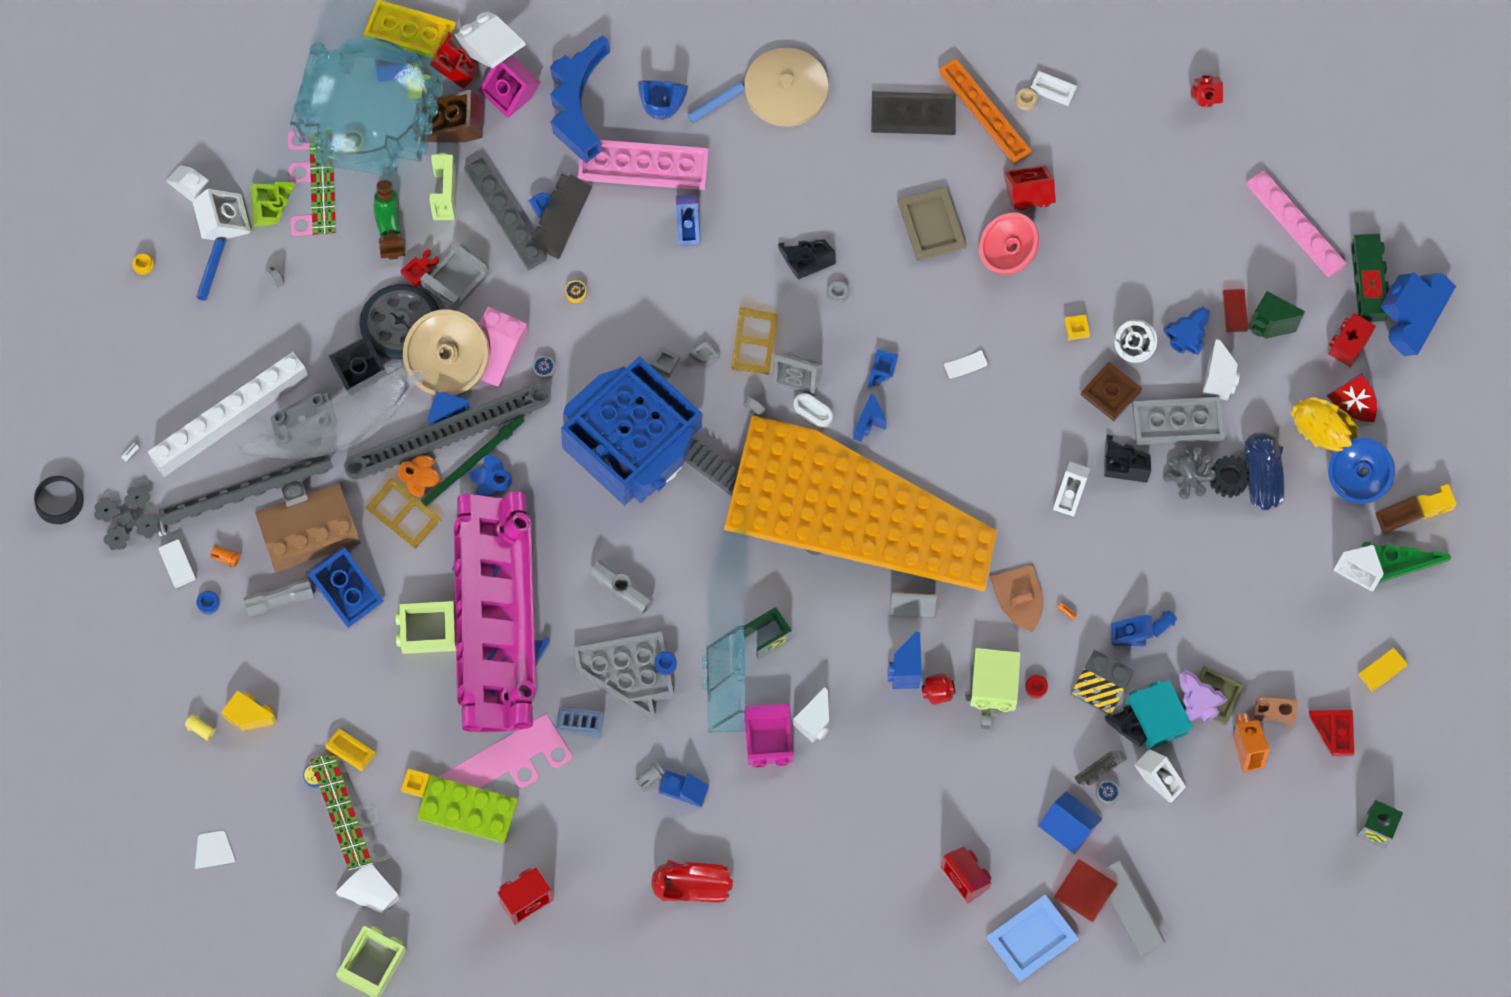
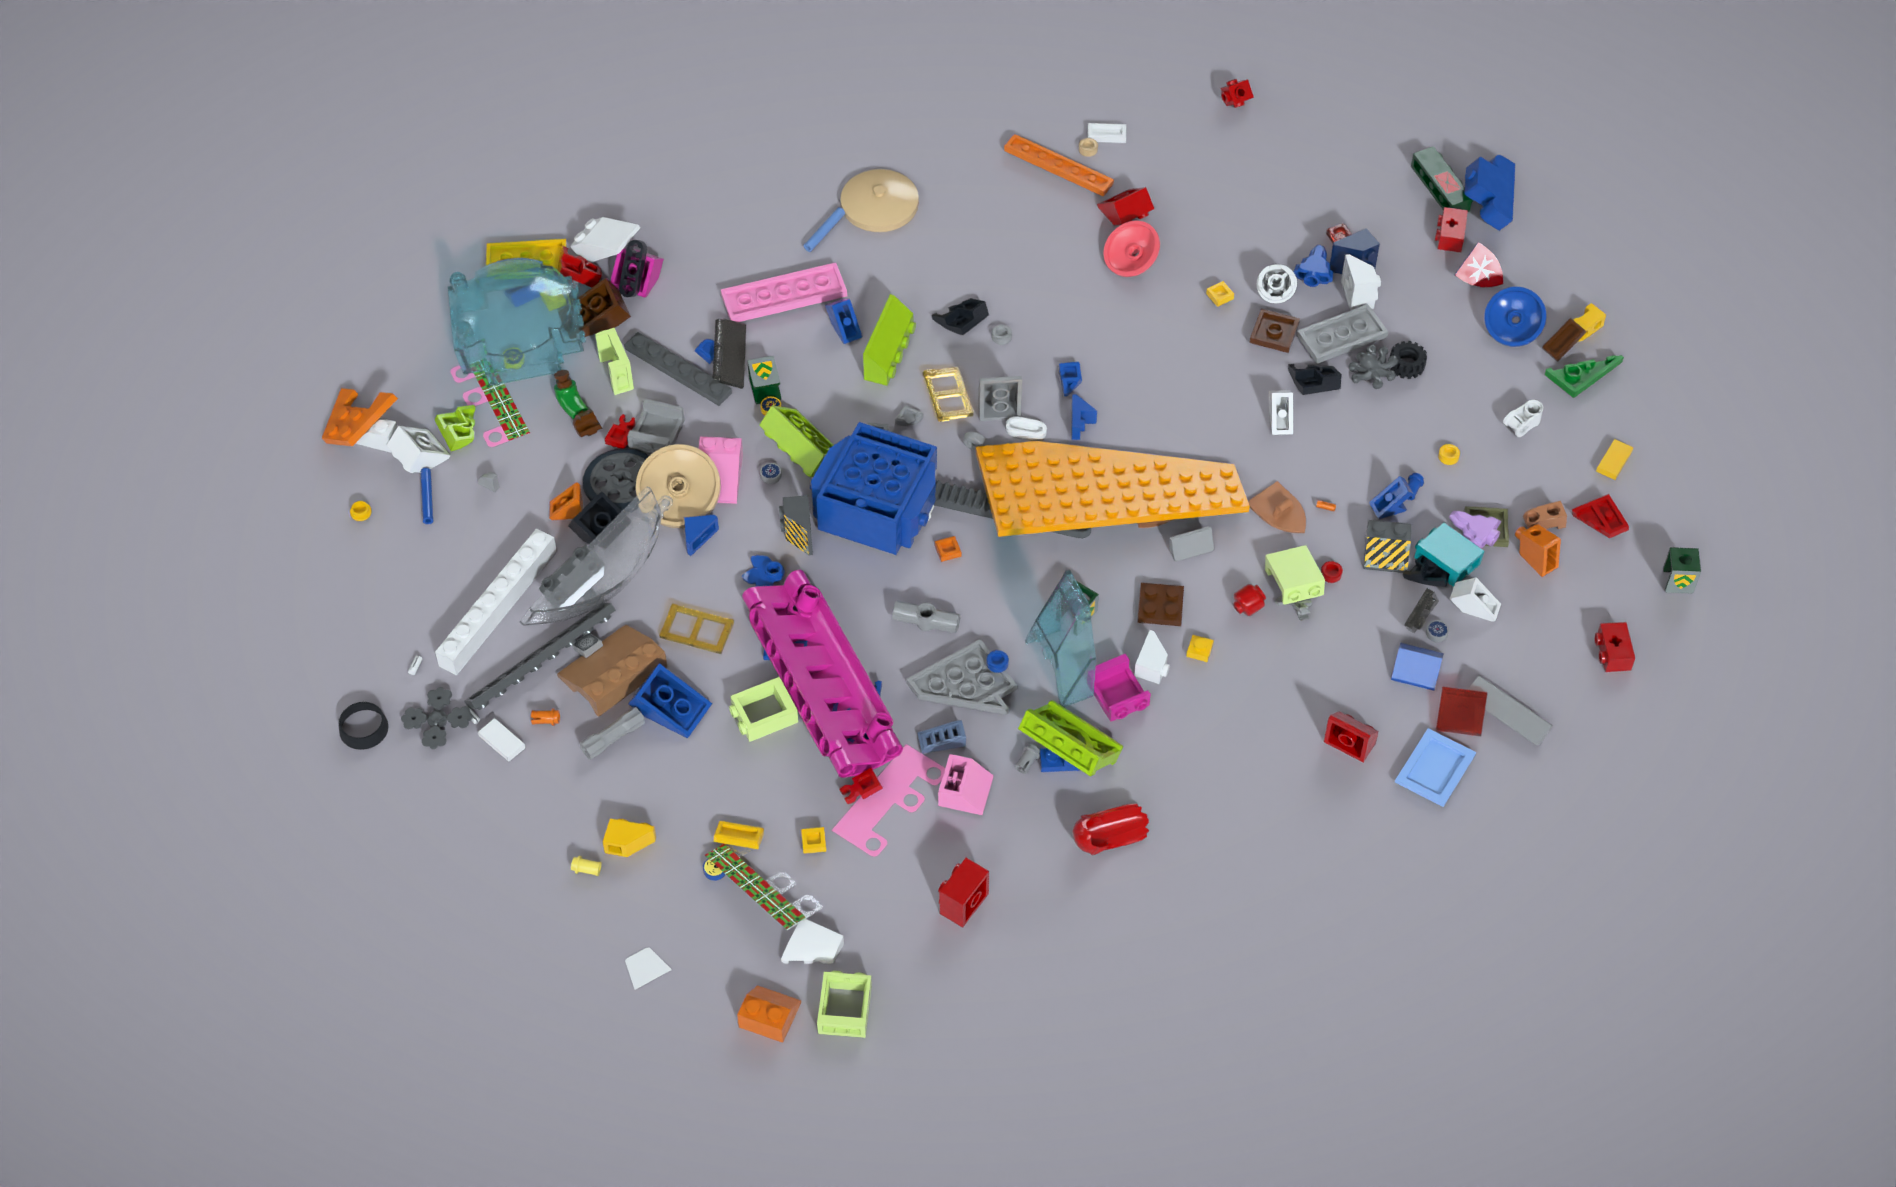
camera: 20 degrees left, 15 degrees down
(167, 164) = (350, 423): none -> orange wing
(208, 602) = (545, 761): blue tile -> none
(302, 941) = (768, 1013): none -> orange slope
(336, 331) = (567, 504): none -> orange slope
(422, 475) = (696, 592): orange plate -> none
(447, 431) = (706, 550): dark grey gear -> none
(467, 809) = (872, 846): lime plate -> none
(486, 744) = (864, 785): none -> red plate
(504, 433) = (758, 536): dark green bar -> none
(511, 81) = (635, 284): none -> black beam
(542, 437) = (796, 522): none -> dark grey slope
(567, 99) = (703, 276): blue arch -> none
(577, 783) = (964, 785): none -> bright pink slope
(580, 260) = (764, 378): none -> piece
(586, 340) = (796, 437): none -> lime slope
(661, 98) = (779, 239): blue hair -> none
(677, 517) = (948, 548): none -> orange tile
(690, 793) = (1070, 737): none -> lime fence
(718, 263) = (888, 342): none -> lime slope
(853, 658) = (1160, 604): none -> reddish brown plate
(868, 721) = (1200, 648): none -> yellow plate
(906, 667) = (1214, 588): blue slope -> none
(913, 113) = (998, 186): clear smoke tile -> none
(931, 224) = (1056, 259): dark tan piece -> none
(965, 365) = (1140, 353): white sticker -> none
(1218, 599) = (1449, 454): none -> yellow tile
(1235, 333) = (1359, 245): none -> dark blue slope
(1265, 470) = (1438, 346): dark blue hair -> none
(1275, 317) = (1386, 227): dark green slope -> none
(1280, 870) = (1615, 647): none -> red brick
(1296, 224) = (1359, 165): bright pink plate -> none
(1309, 591) = (1524, 417): none -> white piece
(1324, 424) = (1464, 293): yellow head -> none
(1361, 567) = (1556, 385): white slope -> none

